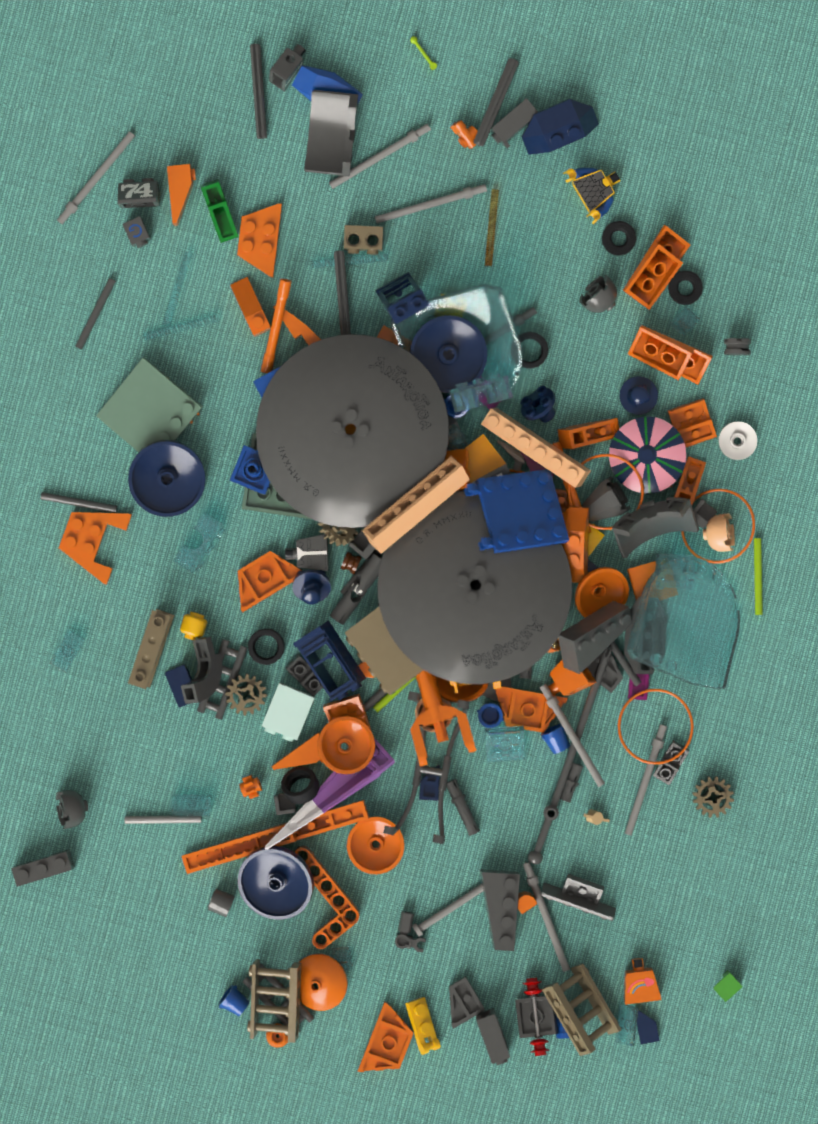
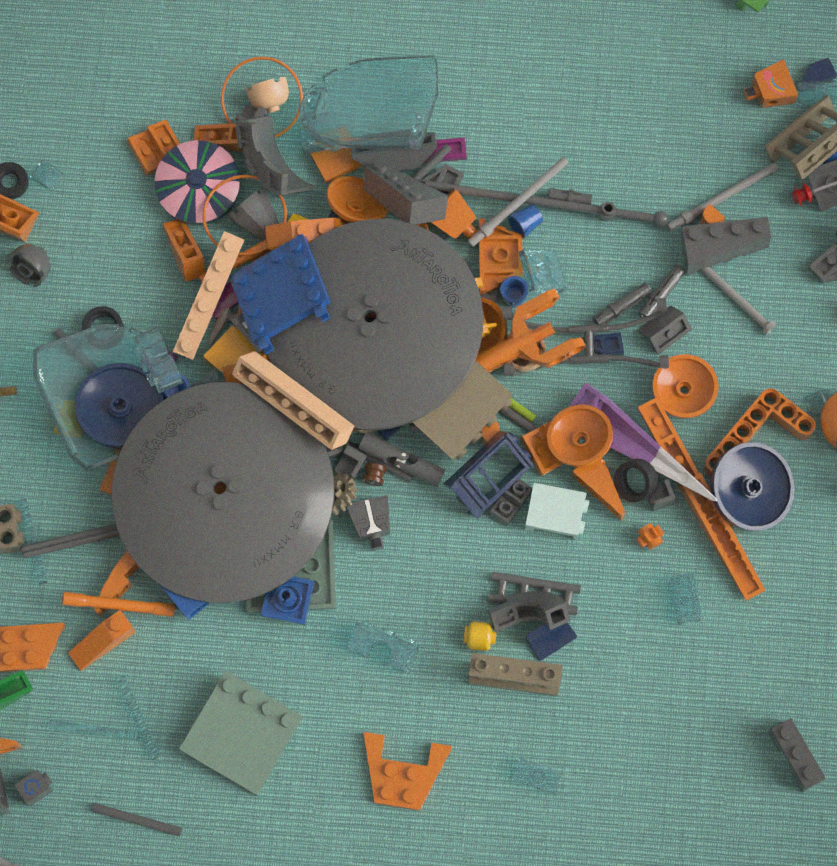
camera: 95 degrees left, 15 degrees down
(71, 808) = (721, 736): dark grey cylinder -> none
(79, 502) = (362, 798): dark grey bar -> none
(162, 819) = (709, 630): light grey bar -> none
(166, 478) = (314, 696): dark blue dish -> none
(221, 902) = (789, 544): dark grey piece -> none
(249, 686) = (555, 564): dark tan gear -> none
(252, 651) = (487, 533): black tyre -> none
(264, 578) = (410, 566): orange wing -> none
(311, 586) = (408, 511): dark blue plate -> none
(399, 309) = (65, 445): dark blue door -> none
(402, 939) = (783, 340): dark grey bar -> none
(424, 835) = (665, 329): none -> dark grey panel
(467, 844) = (663, 290): none -> dark grey pin
(539, 405) = (161, 304): dark blue plate -> none
(580, 895) = (690, 164): dark grey bracket -> none
(595, 817) = (602, 166): tan piece -> none
(638, 395) = (134, 206): dark blue plate -> none
(657, 744) = (509, 118): light grey bar -> none
(658, 762) = (498, 158): orange piece -> none
(667, 771) = (526, 102): dark grey slope -> none
(669, 355) = (84, 181): orange slope -> none
(716, 809) = (550, 59): dark tan gear -> none
(737, 346) = (64, 114): dark grey wheel -> none
(747, 436) = (163, 88): white dish -> none
(758, 576) = (311, 51): lime bar -> none

